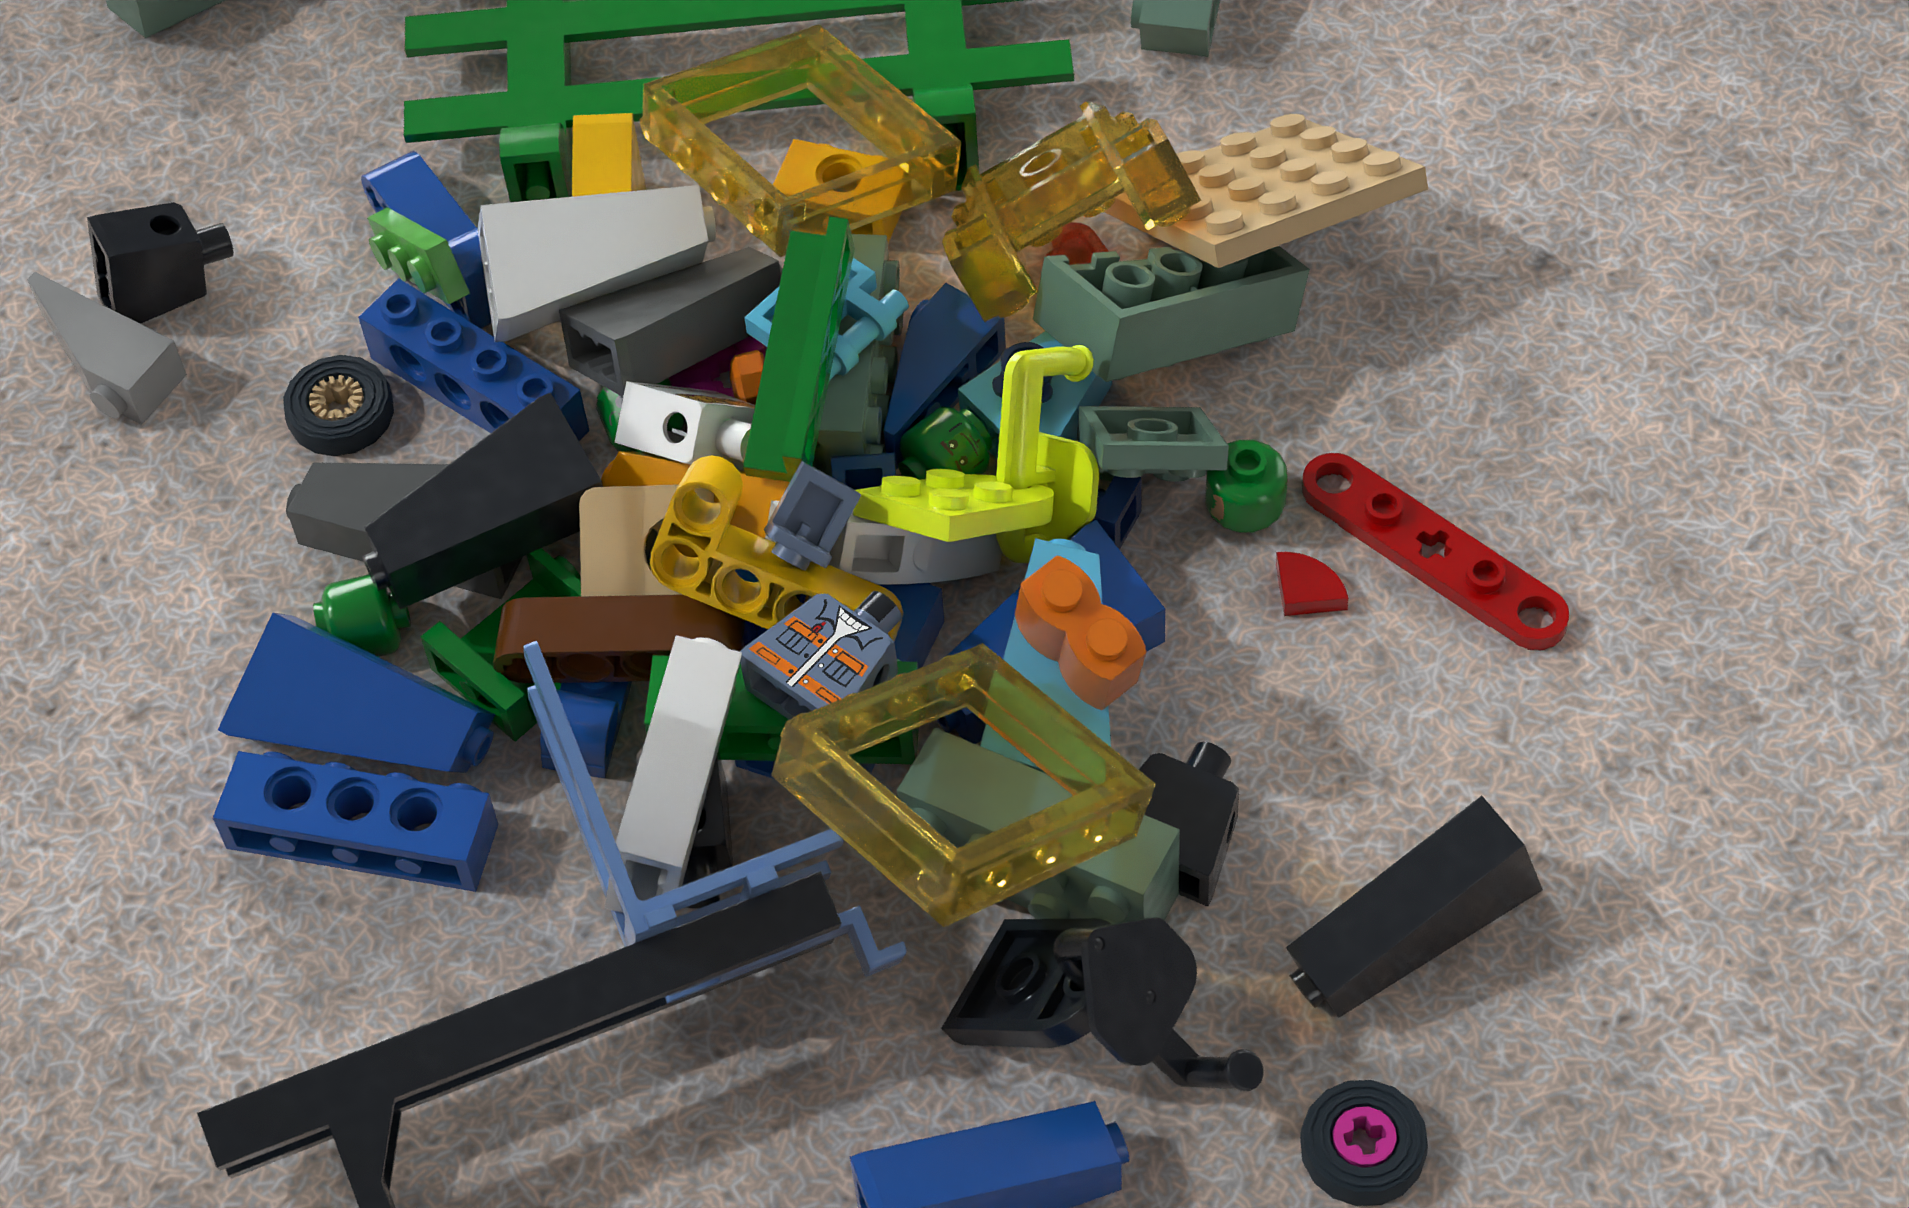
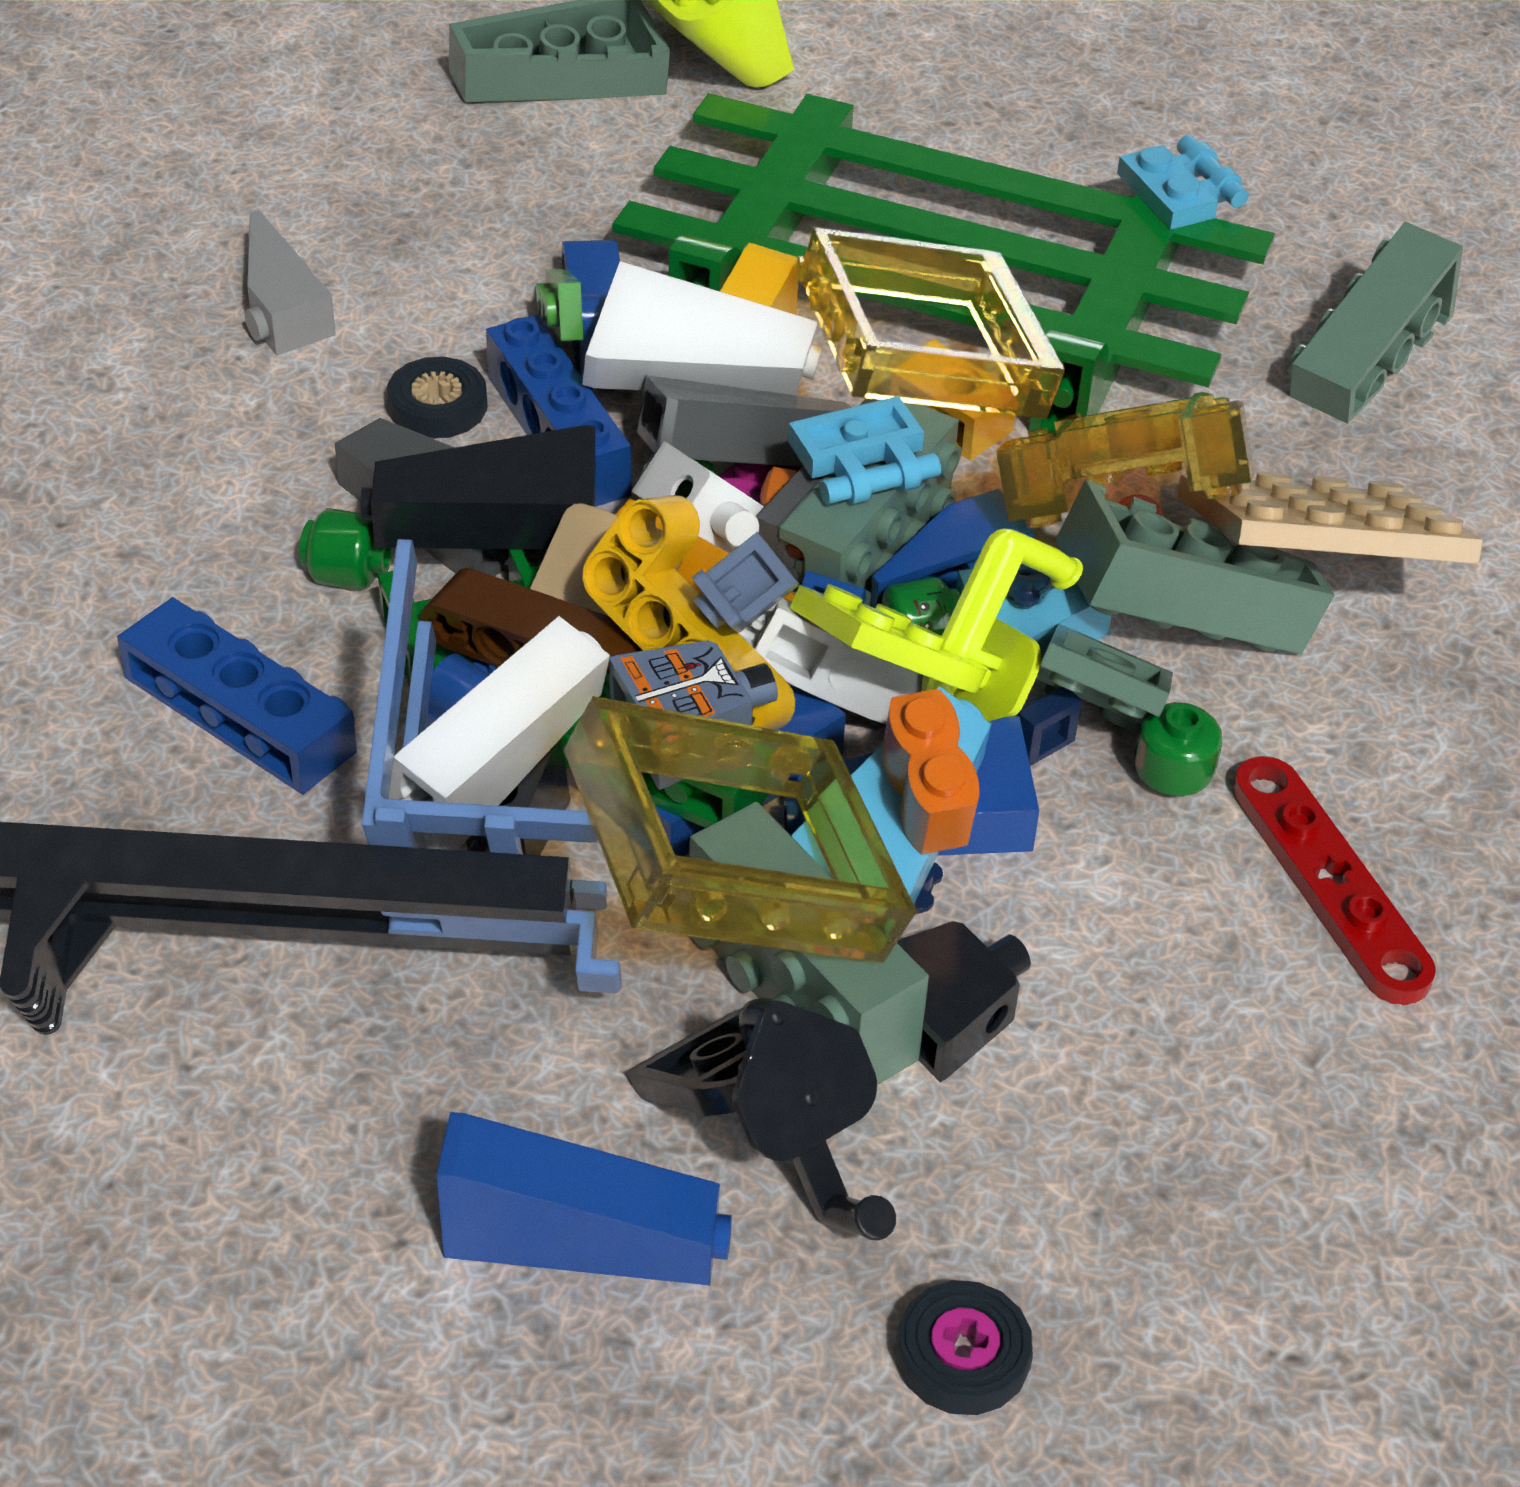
camera: 20 degrees right, 10 degrees down
(152, 259) = (358, 236): black torso -> none
(342, 700) = (284, 596): blue slope -> none
(800, 352) = (821, 456): green fence -> none
(1308, 585) = (1193, 858): red tile -> none
(1415, 910) = (1131, 1159): black slope -> none

